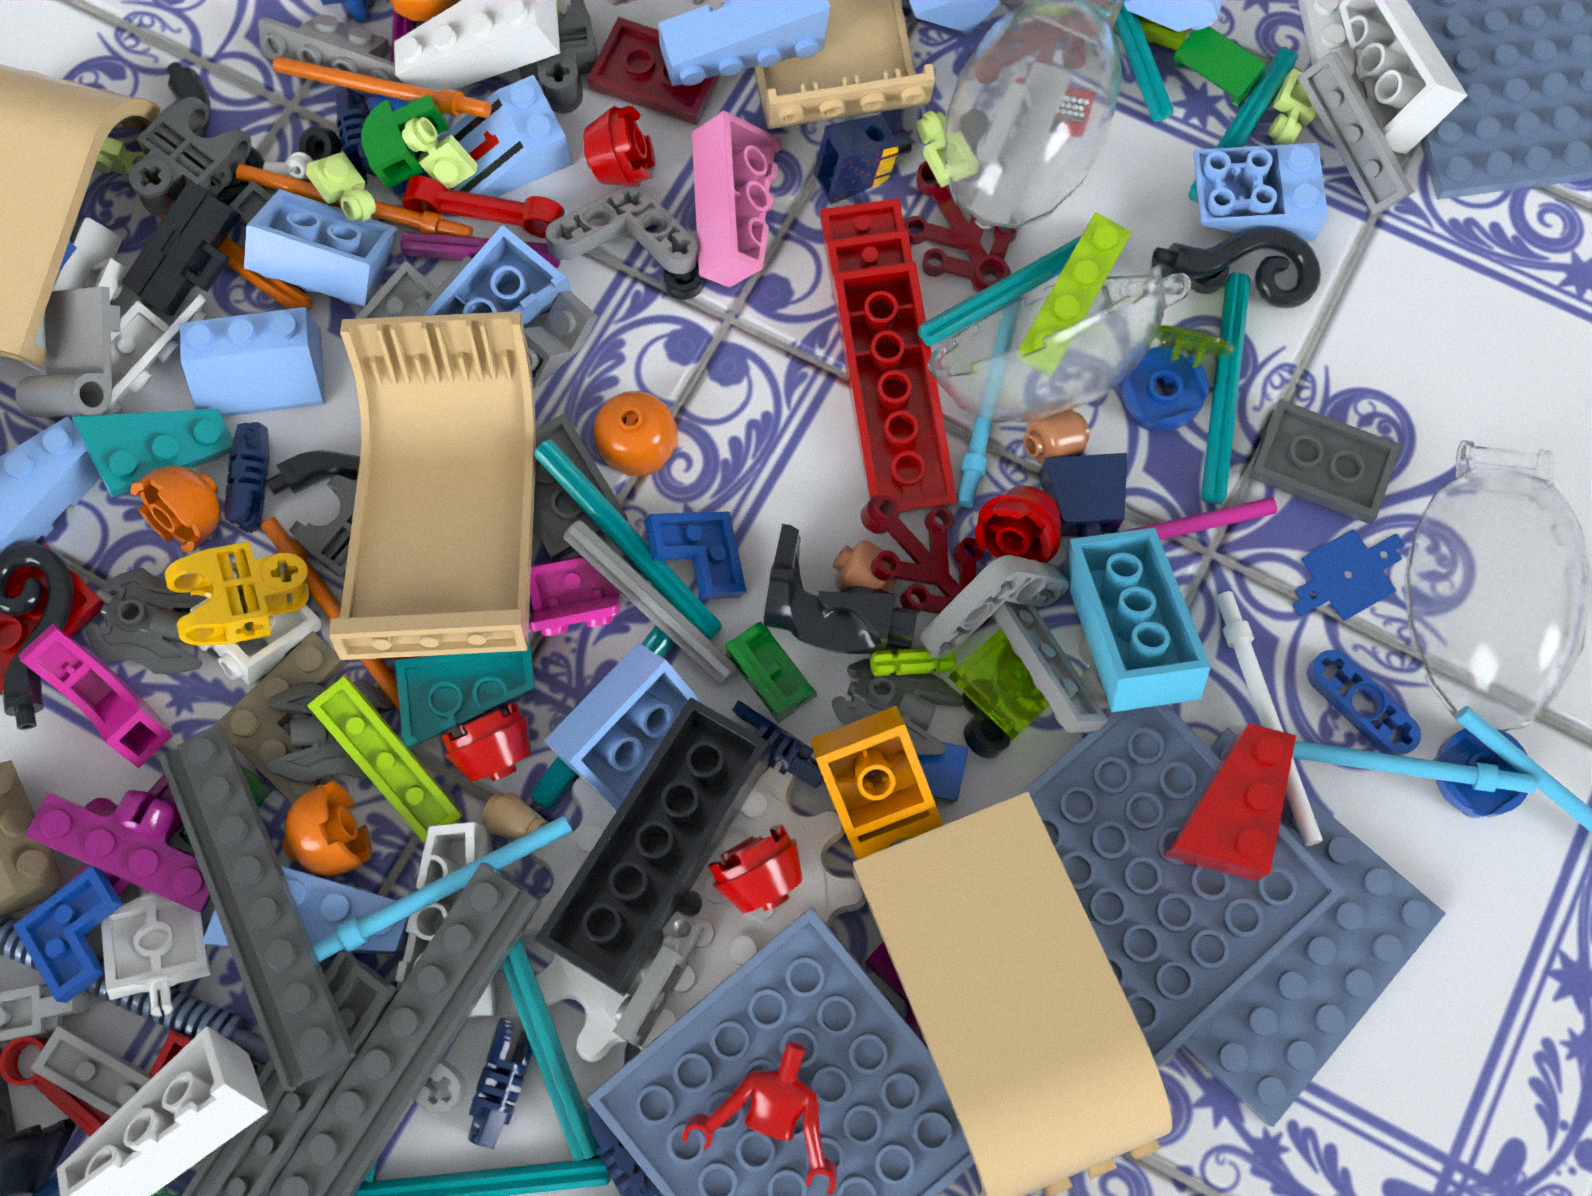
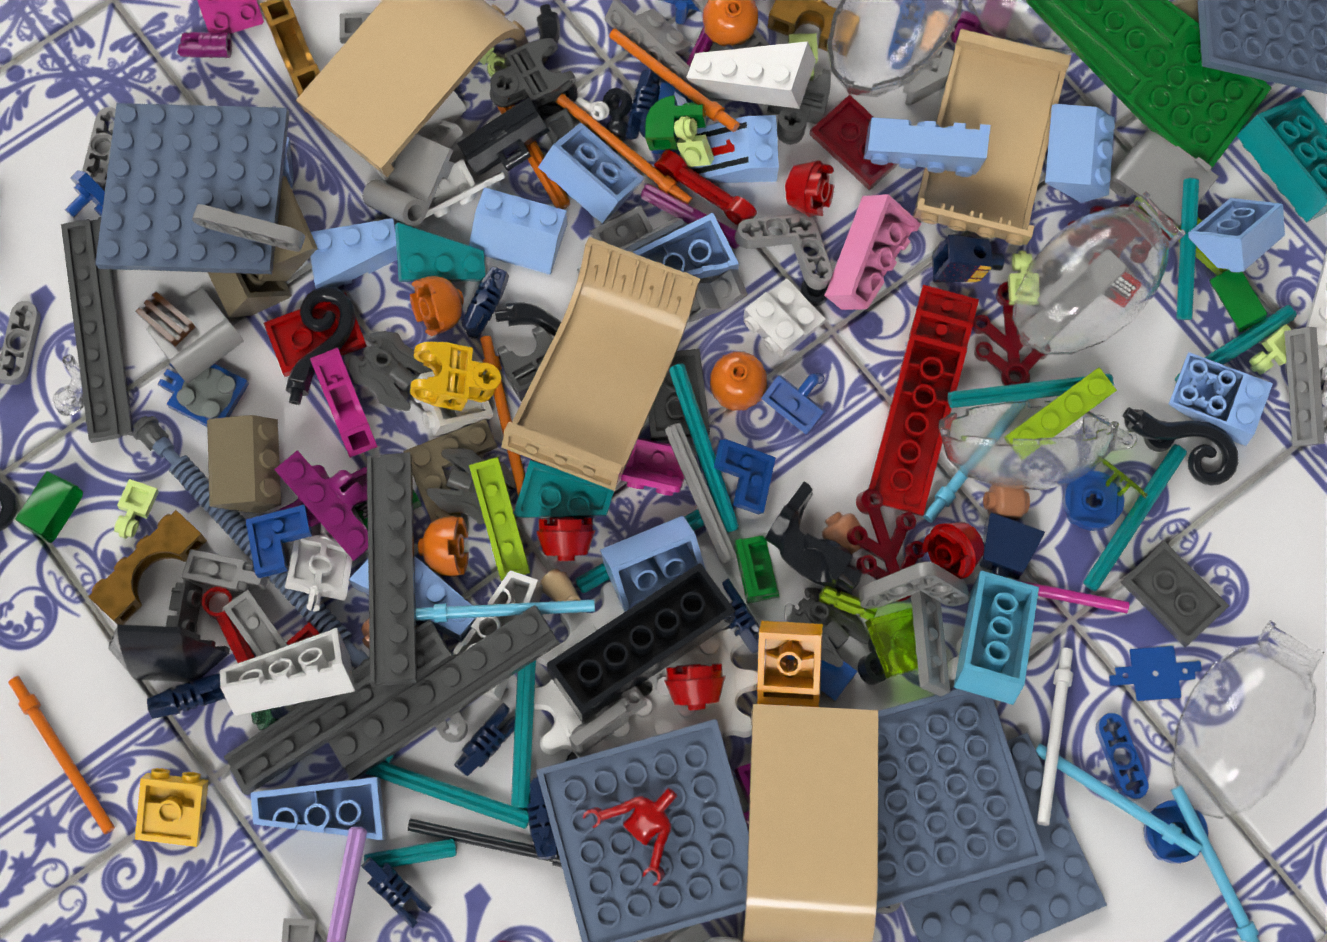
camera: 20 degrees right, 0 degrees up
(339, 180) = (621, 132): yellowish green plate -> none
(657, 329) = (782, 318): none -> white plate
(721, 429) = (794, 402): none -> blue plate
(1241, 807) = (1002, 778): red wedge -> none

